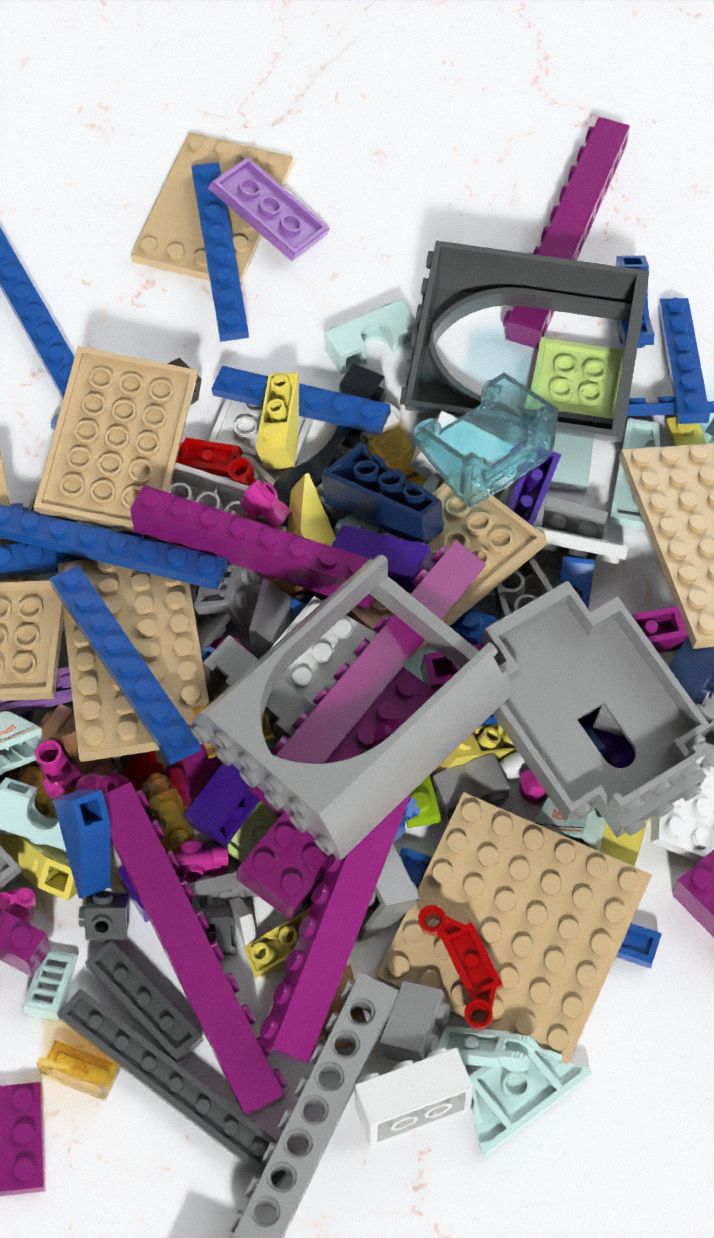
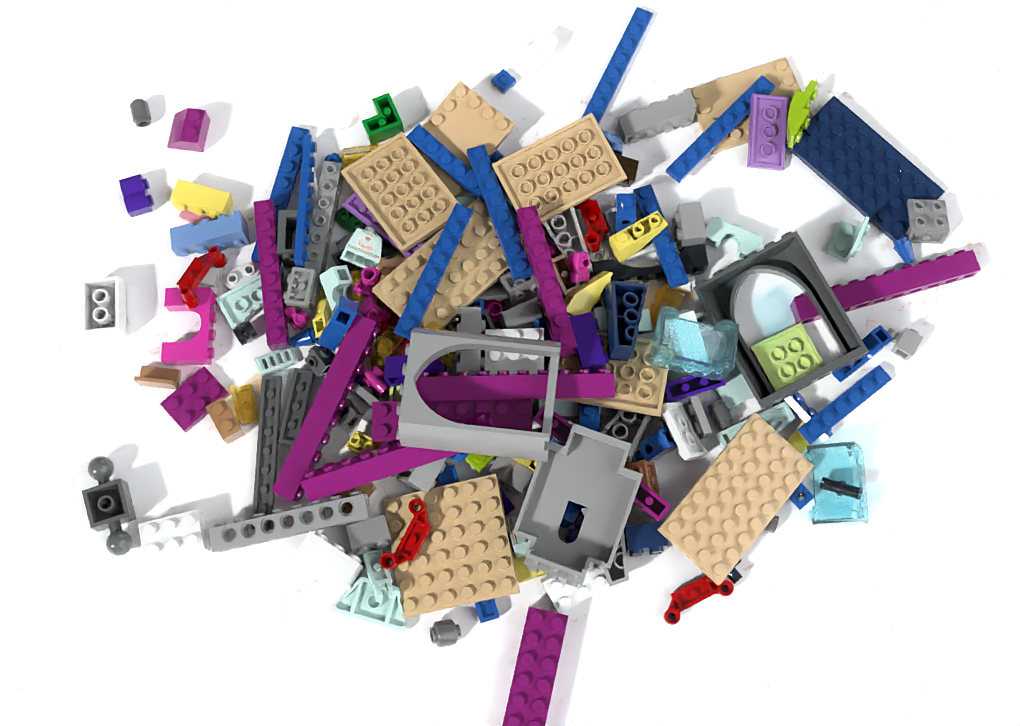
camera: 55 degrees right, 15 degrees up
(54, 917) = (304, 338): none -> blue cone
(80, 1112) = (225, 420): none -> medium nougat brick
(143, 299) = (658, 118): none -> light grey wedge
(235, 412) = (624, 210): none -> blue torso
(280, 160) = (799, 113): none -> lime slope
(317, 357) = (689, 225): none -> light grey brick
(402, 153) = (863, 167): none -> dark blue plate
(481, 222) = (847, 240): none -> light aqua bracket
(528, 134) = (927, 221): none -> light grey bracket
(539, 182) = (904, 250): none -> blue cone
(589, 494) = (720, 414): none -> dark grey brick
(632, 1020) = (445, 633): none -> head
(660, 254) = (905, 343): none -> light grey brick

